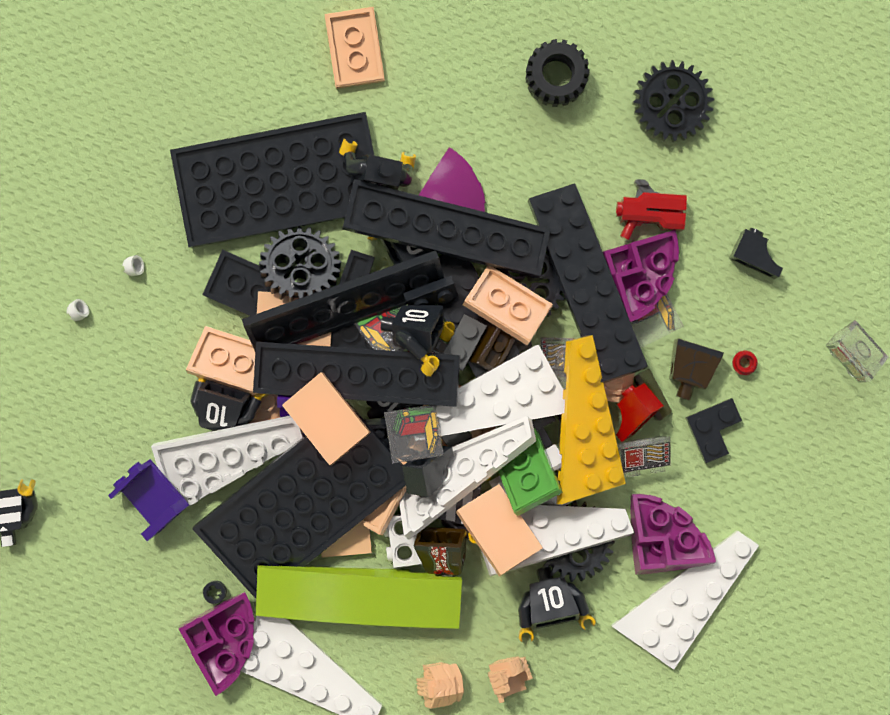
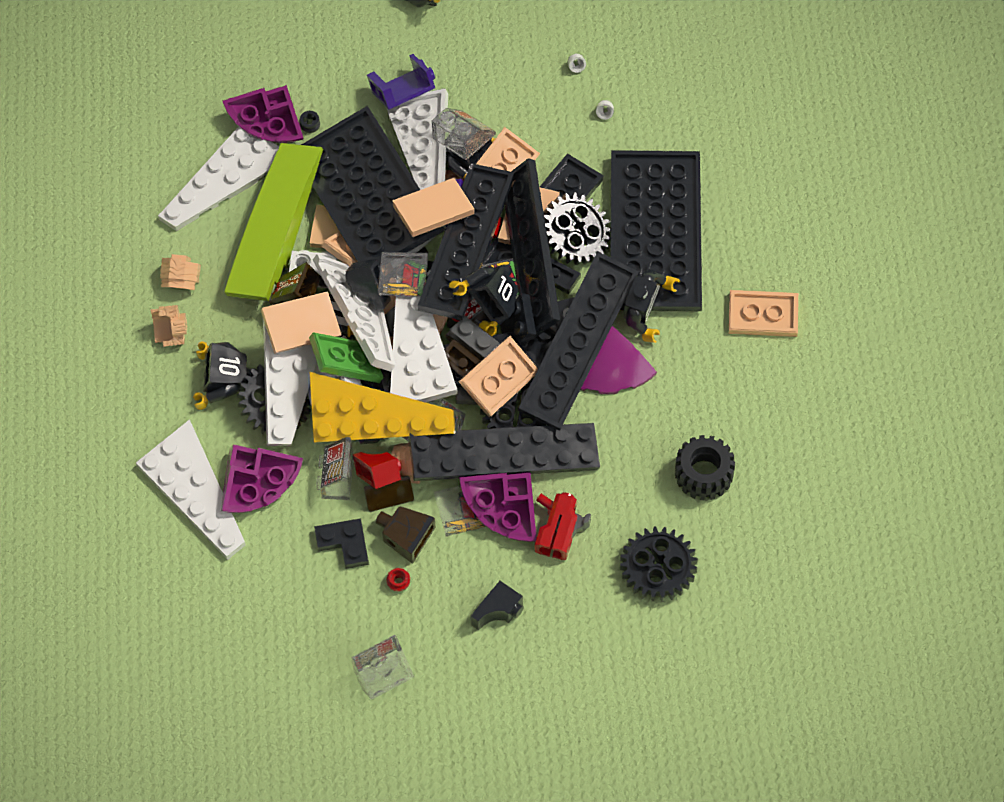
camera: 105 degrees right, 25 degrees down
(214, 411) = (460, 132): none -> clear slope

